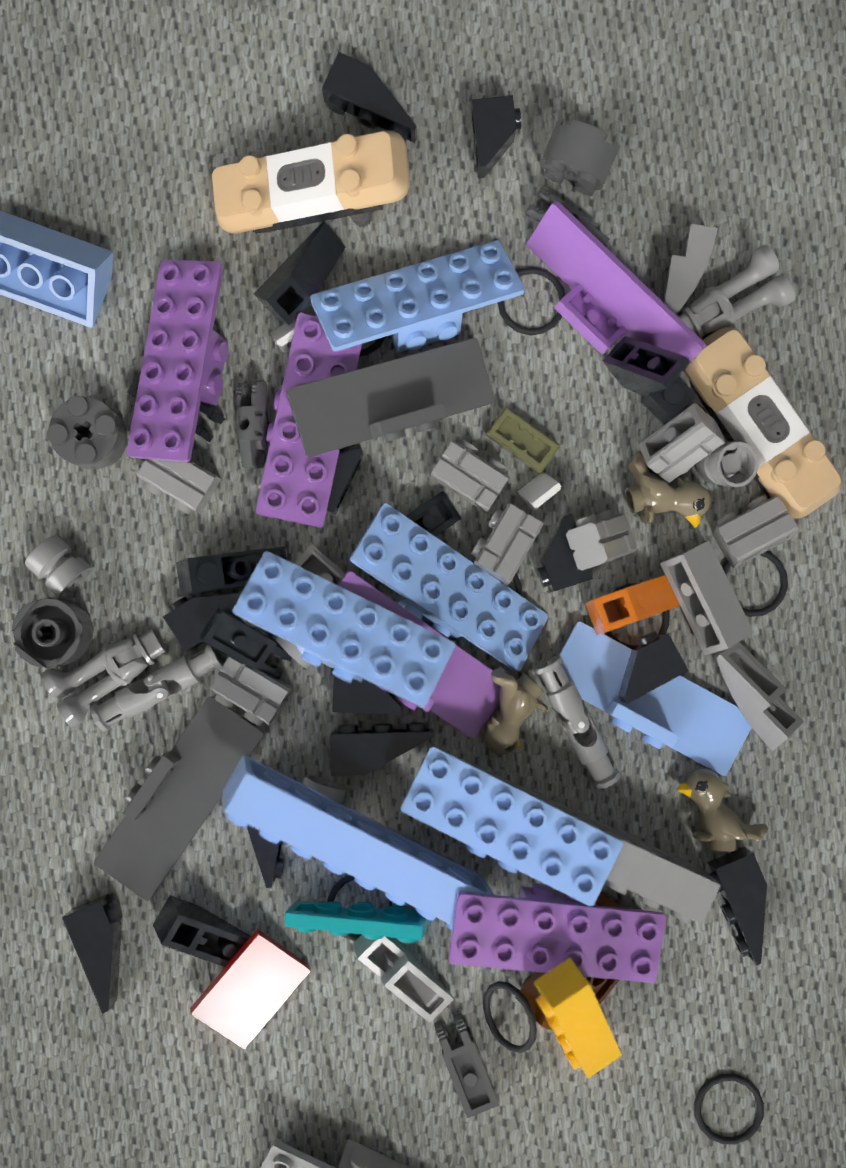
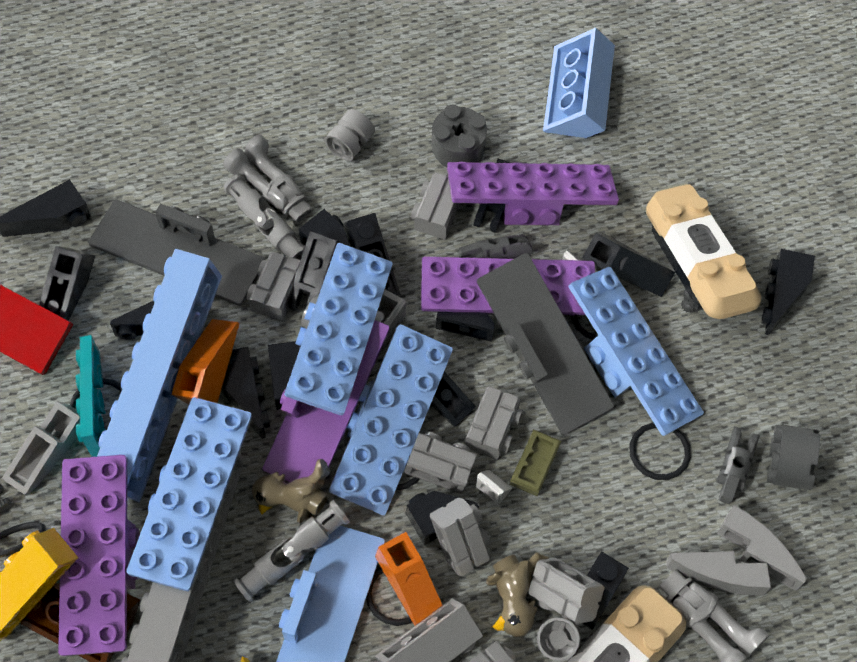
camera: 75 degrees right, 25 degrees down
(33, 632) = (296, 138): dark grey brick -> none
(351, 786) = (206, 363): none -> orange slope
(493, 130) = (792, 388): black slope -> none
(605, 294) = (673, 507): medium lavender bracket -> none
(644, 366) = (625, 539): black slope -> none
(651, 666) = (354, 603): black slope -> none
(665, 225) = (761, 547): none -> light grey slope

